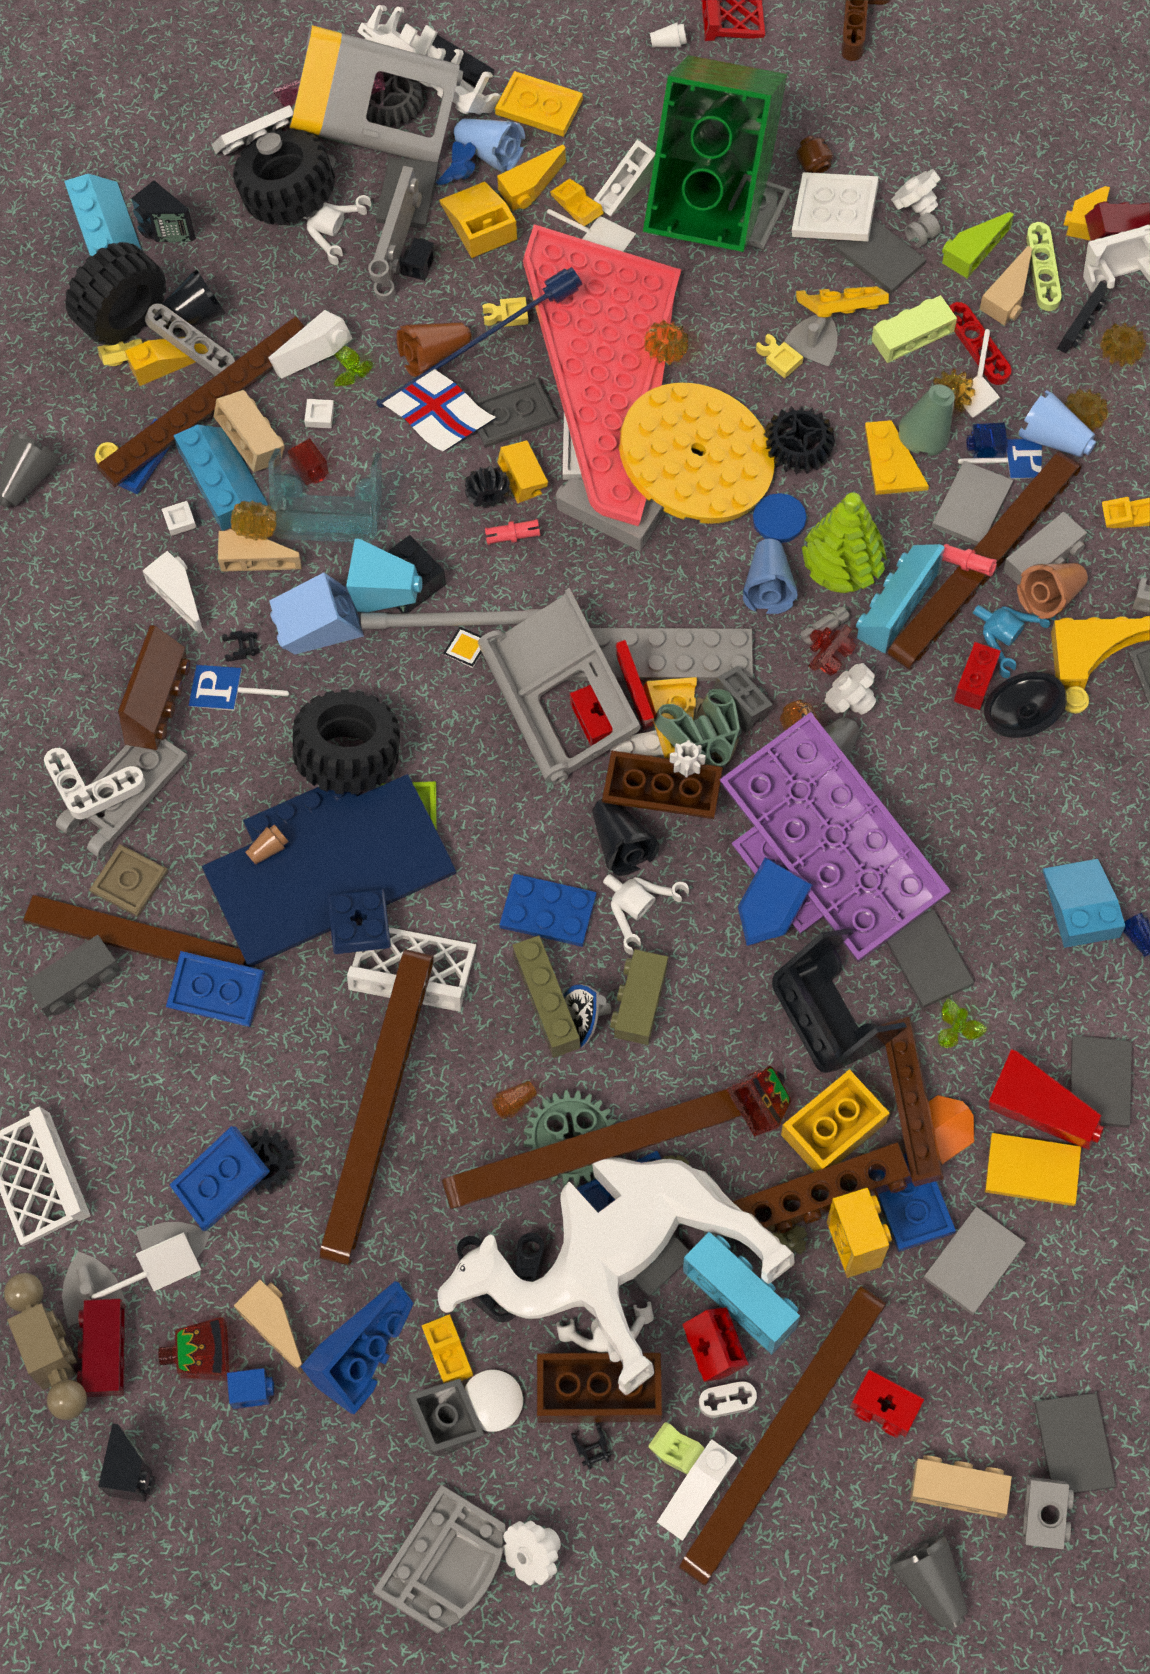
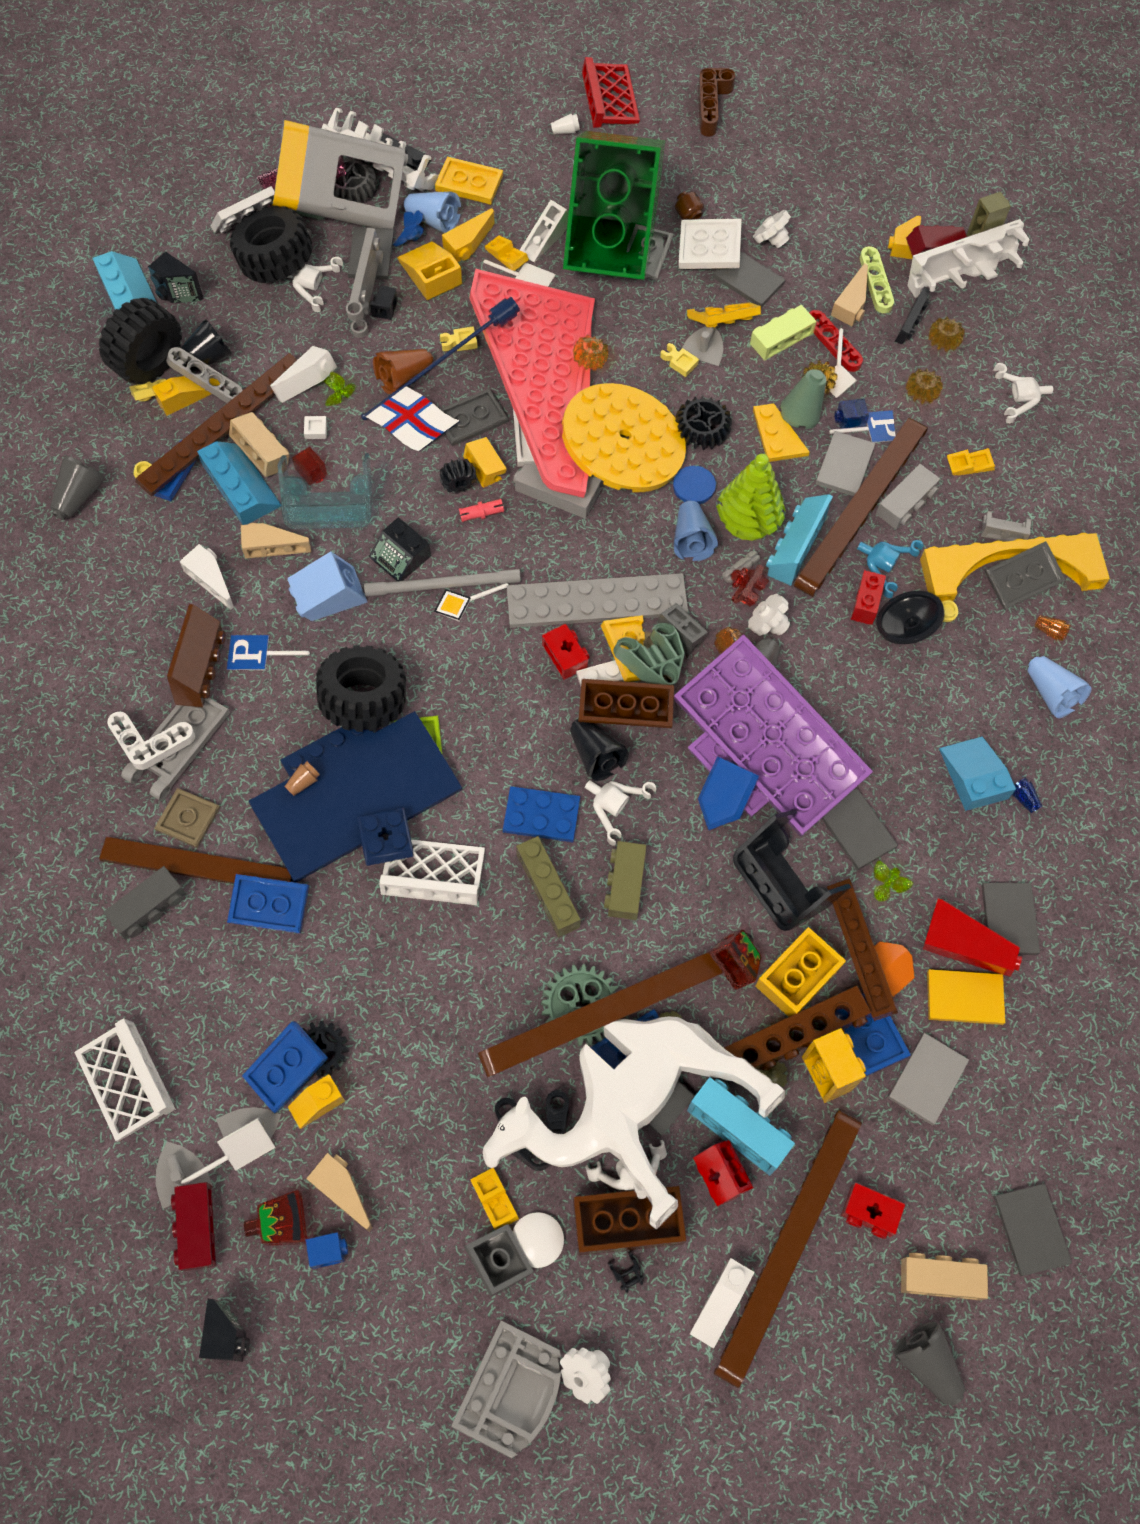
camera: 10 degrees left, 0 degrees up
(44, 1347) = (141, 1232): dark tan brick -> none
(179, 518) = (206, 518): white plate -> none
(240, 636) = (268, 622): black piece -> none
(251, 1221) = (315, 1101): none -> yellow slope
(253, 520) = (268, 514): clear yellow gear -> none
(269, 143) = (257, 218): light grey piece -> none
(349, 1356) = (411, 1212): blue wedge -> none
(376, 1107) = (414, 995): reddish brown beam -> none
(380, 579) = (378, 554): medium azure slope -> none
(512, 1100) = (529, 976): clear orange cone -> none
(540, 657) = (515, 607): light grey piece -> none
(585, 1007) = (582, 893): shield -> none
(634, 685) = (594, 624): red tile -> none
(676, 1448) = (700, 1268): yellowish green bracket -> none
(687, 758) = (645, 680): white gear -> none
(728, 1407) = (735, 1212): white beam -> none
(925, 228) = (780, 257): light grey wheel -> none
(969, 560) = (852, 506): coral pin -> none
(974, 244) = (821, 266): lime slope -> none
(1038, 1495) = (1011, 1279): light grey brick -> none
(1050, 587) = (917, 524): nougat cone -> none
(1057, 427) = (906, 399): light blue cone -> none

